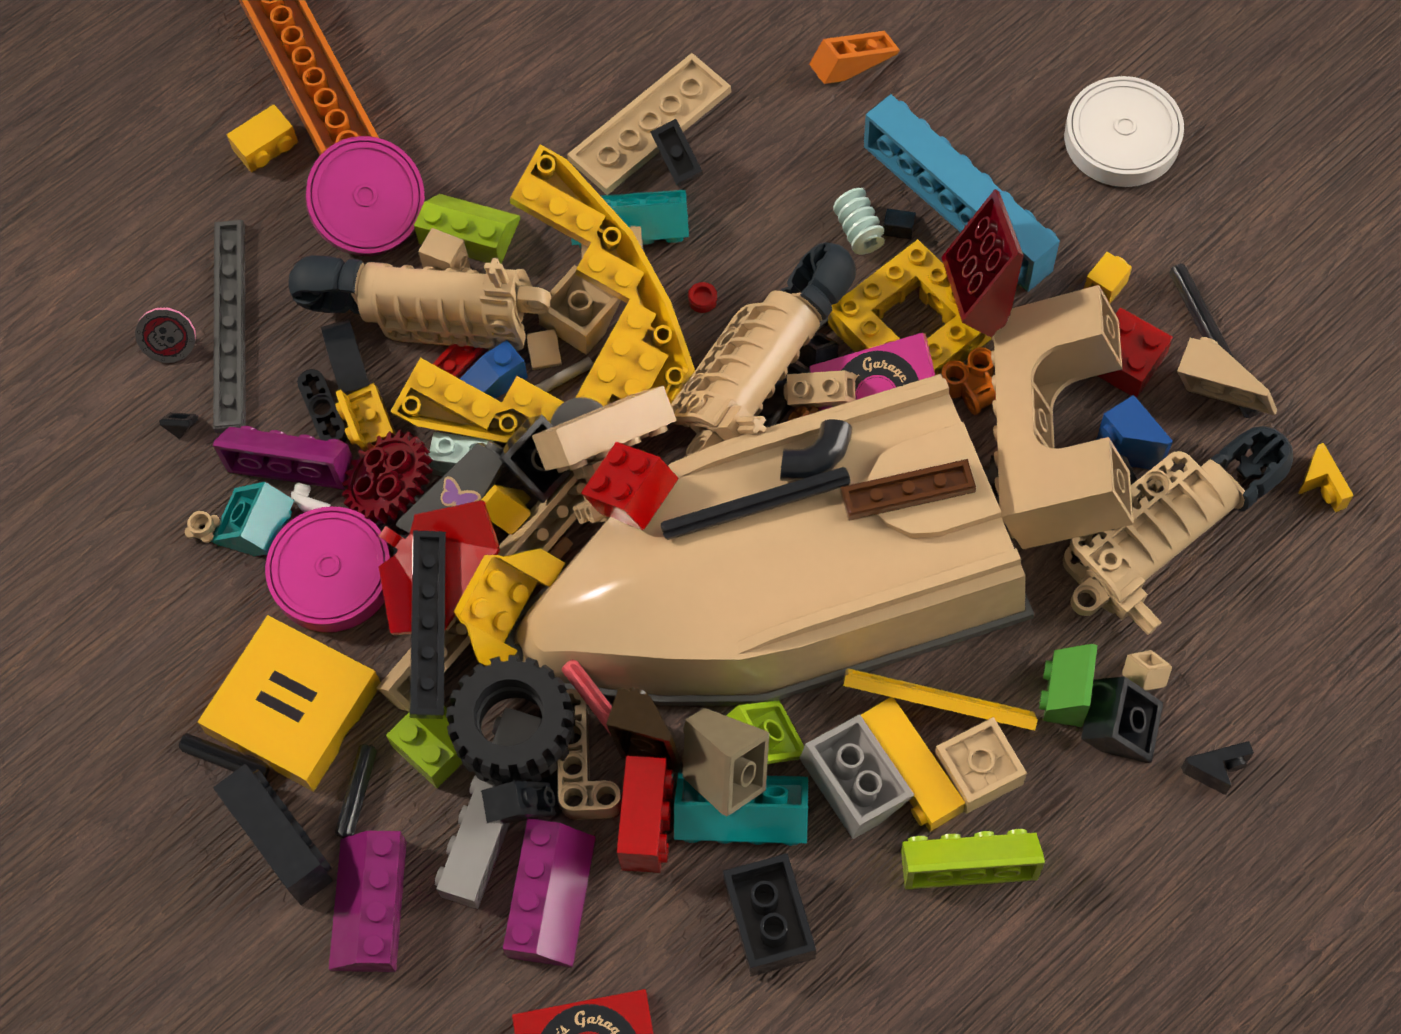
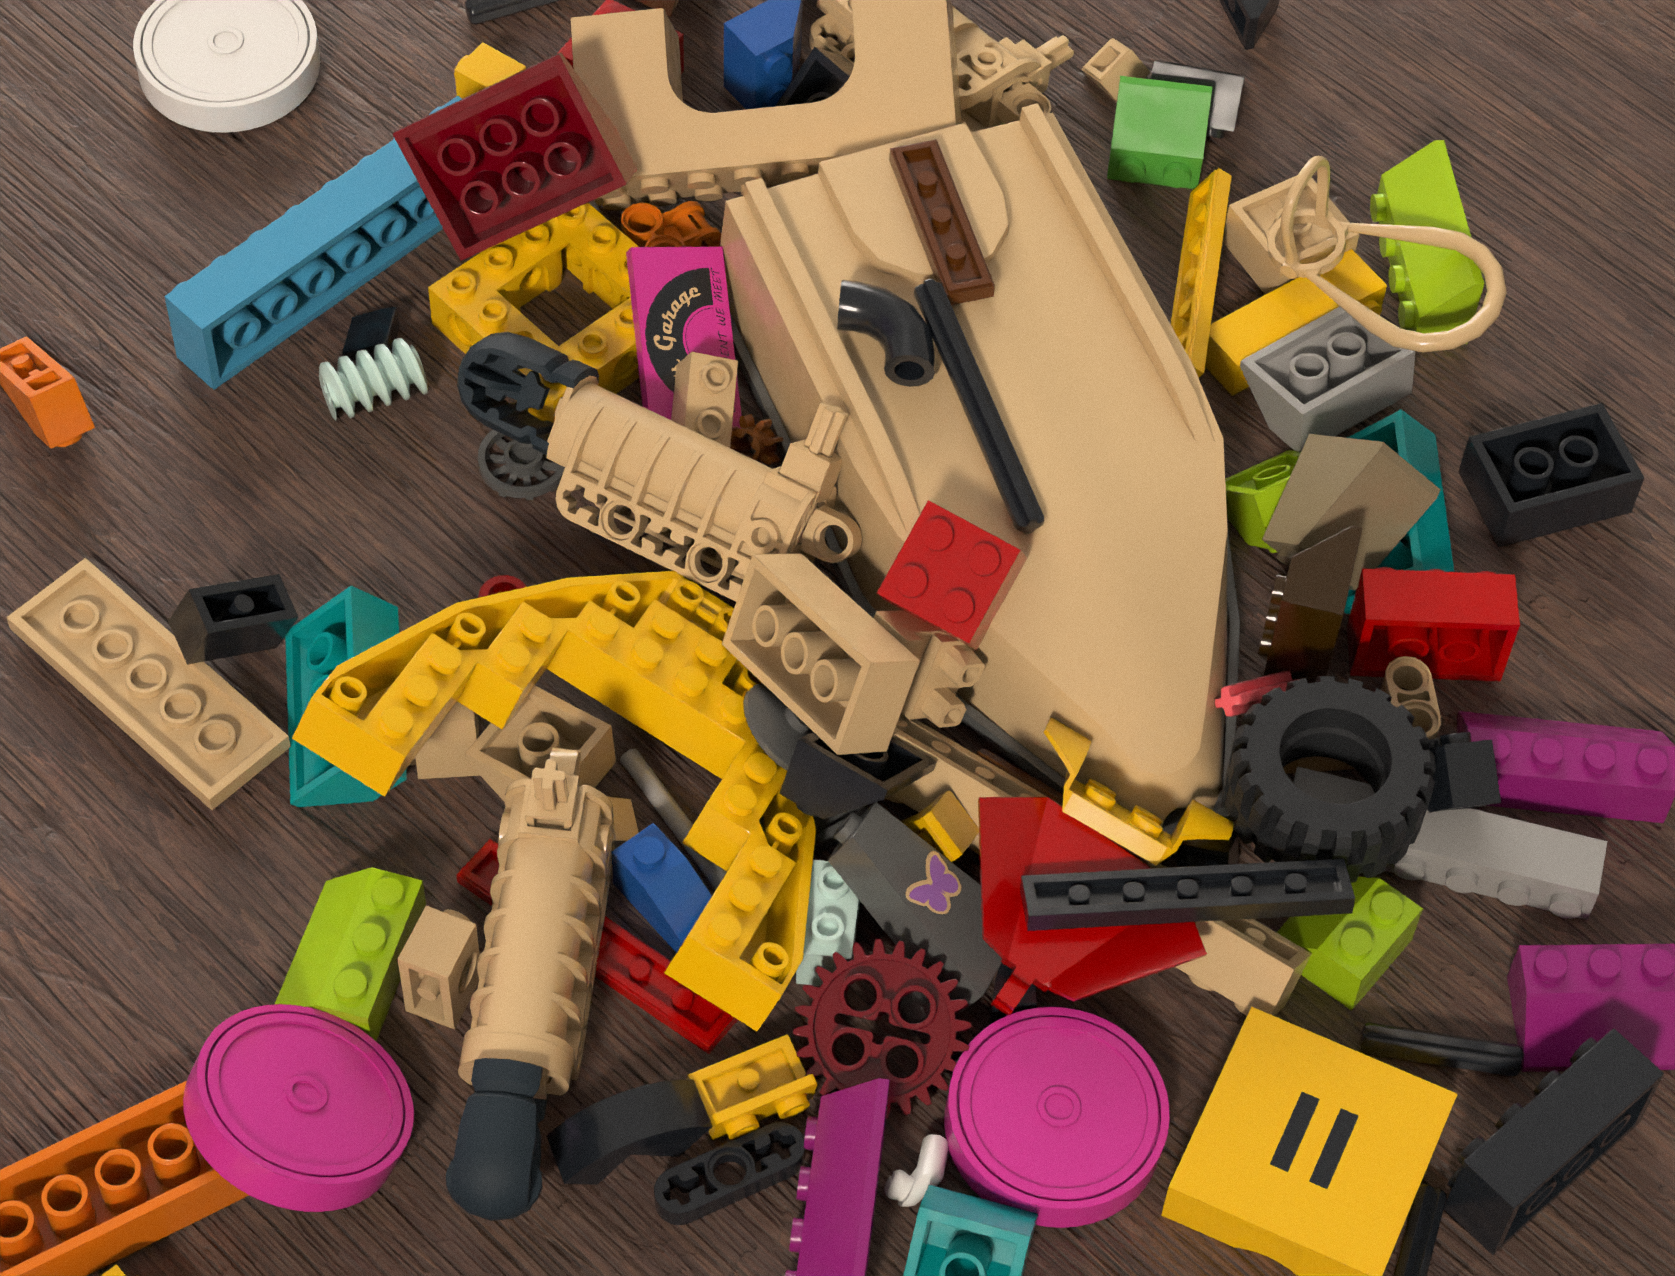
camera: 100 degrees left, 10 degrees down
(946, 846) = (1424, 235): none -> tan animal

